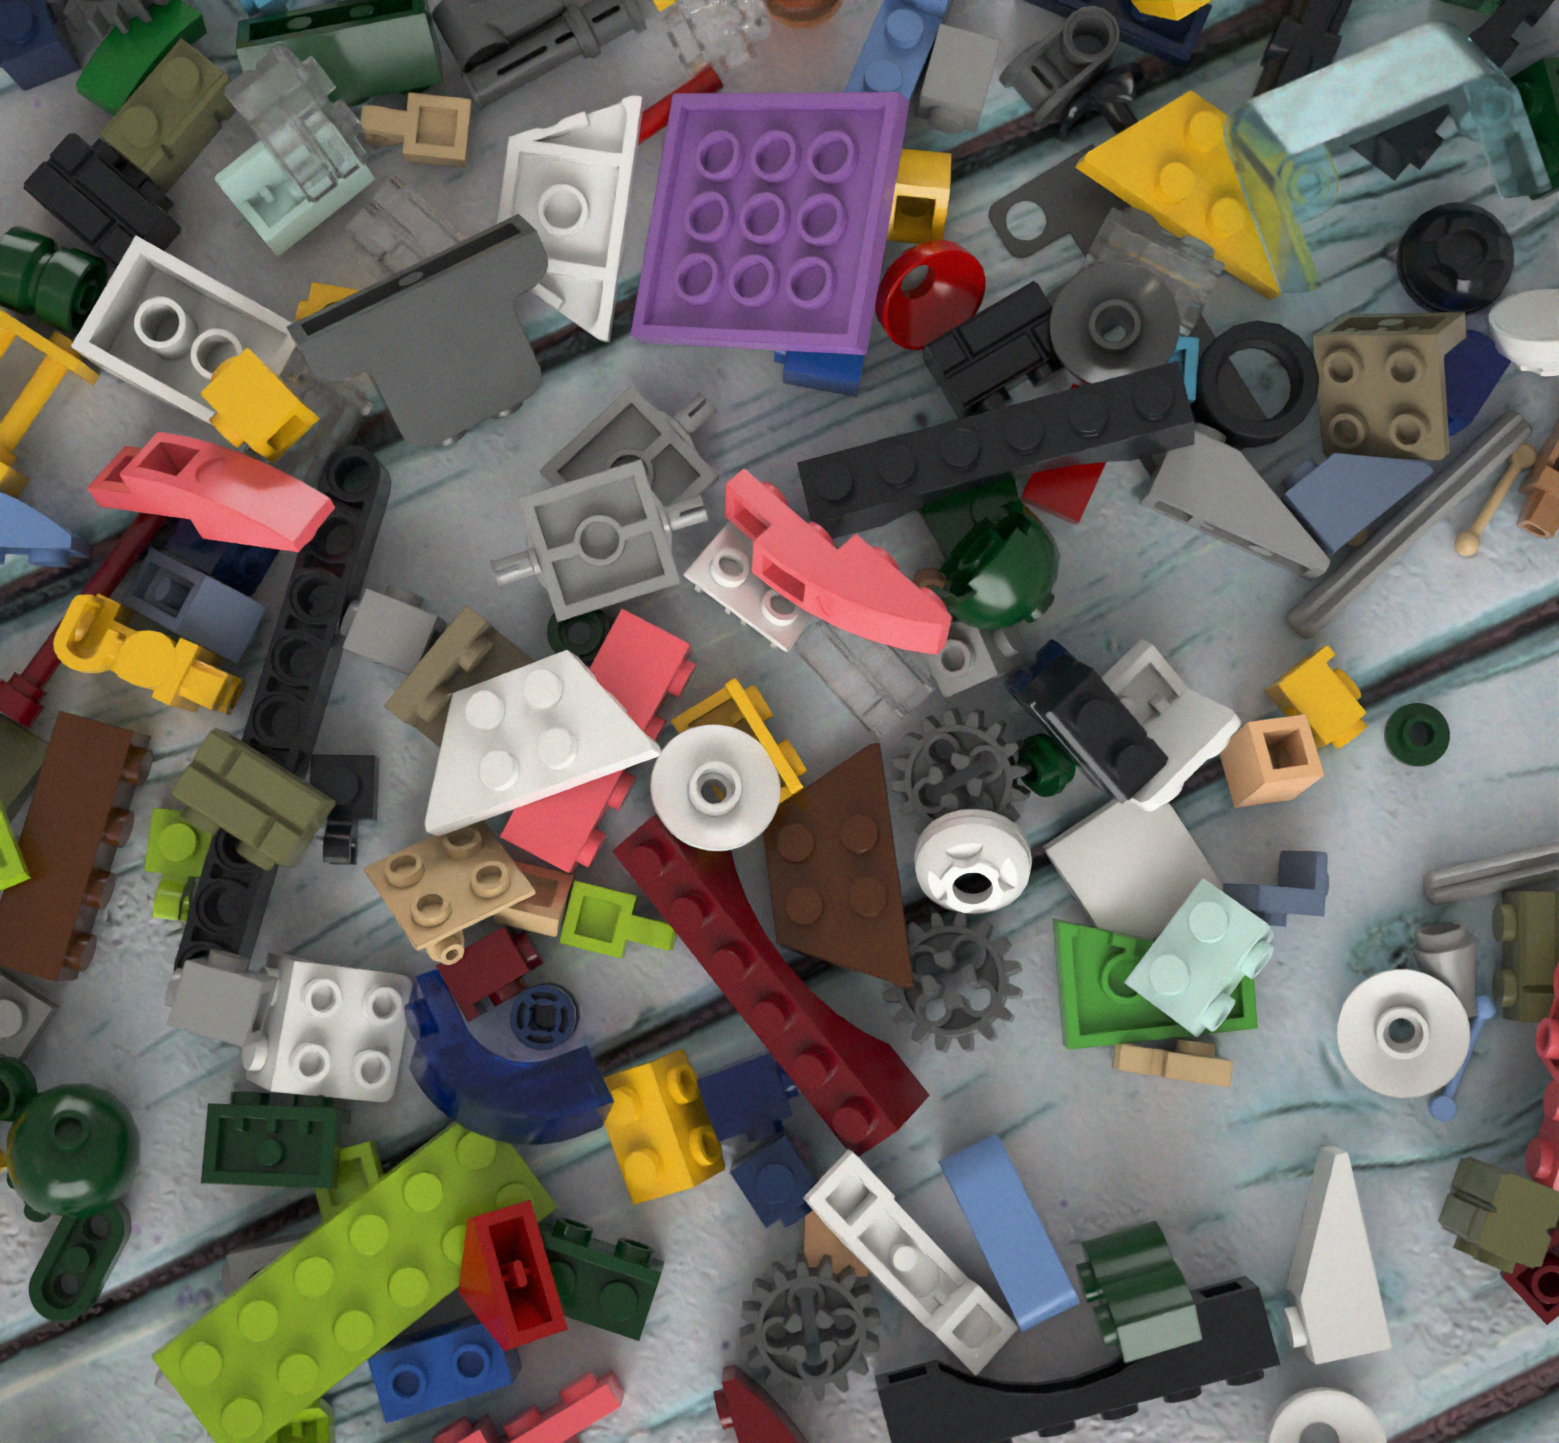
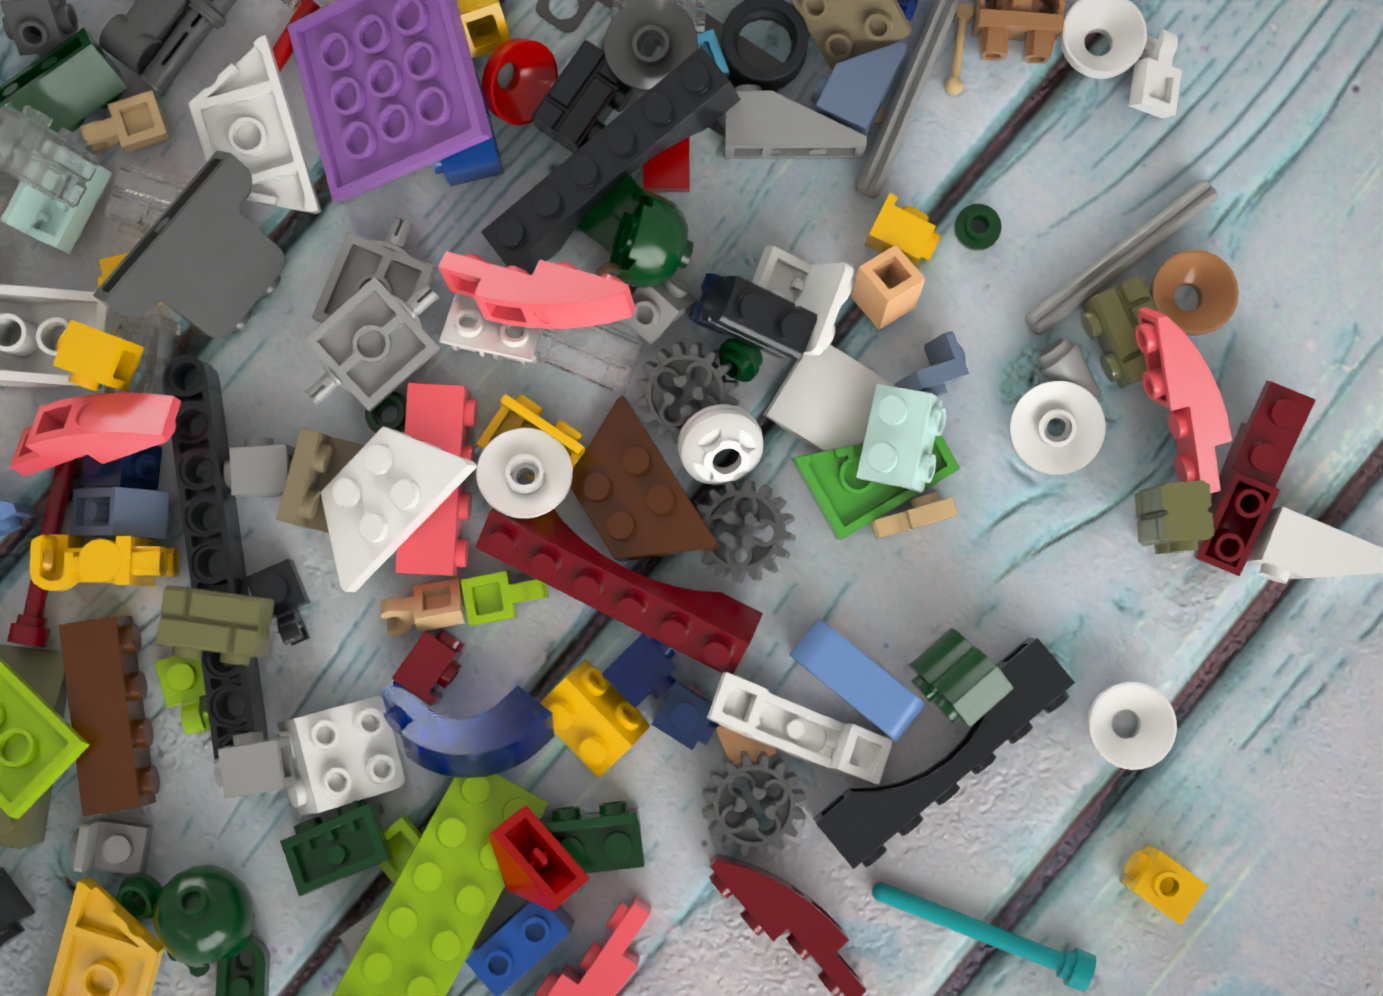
camera: 20 degrees left, 0 degrees up
(448, 886) = (375, 621): tan hinge -> none
(554, 1009) = (491, 676): dark blue wheel -> none
(1332, 1275) = (1083, 607): white slope -> none
(1443, 1106) = (1107, 465): light blue hinge -> none

